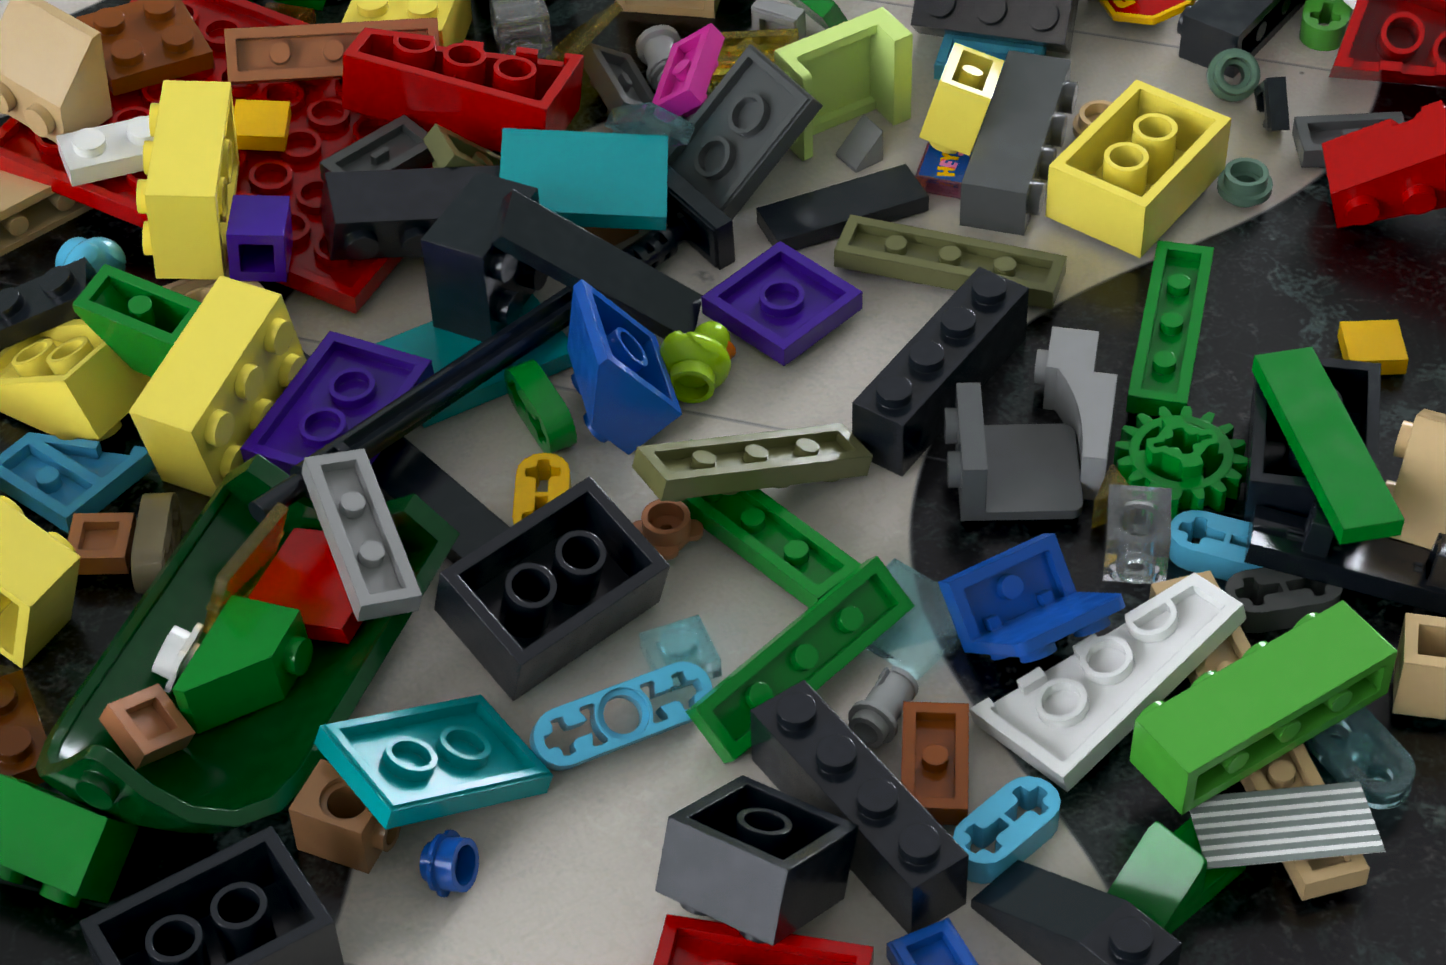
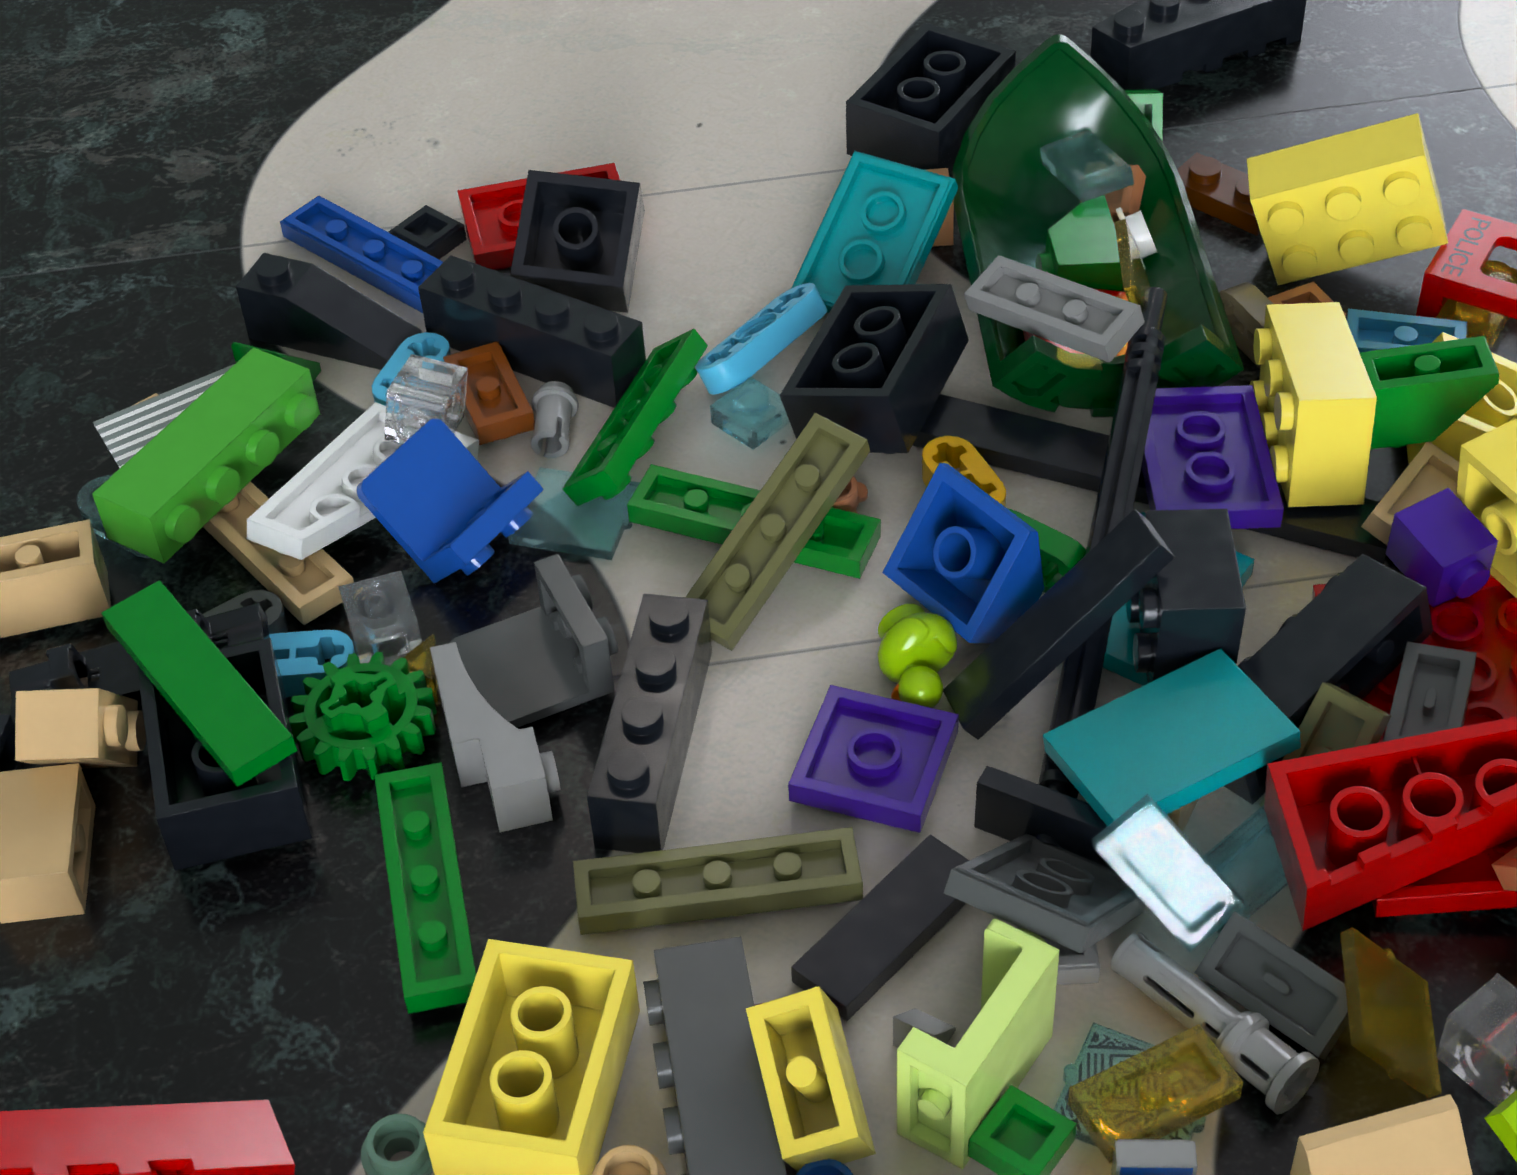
camera: 155 degrees right, 0 degrees up
(160, 722) = (1086, 166): none -> clear light blue tile
(449, 863) = (814, 212): blue plate -> none
(689, 71) = (1181, 965): dark pink plate -> none
(1016, 710) = (424, 392): none -> clear brick
(1374, 342) = (186, 959): yellow tile -> none

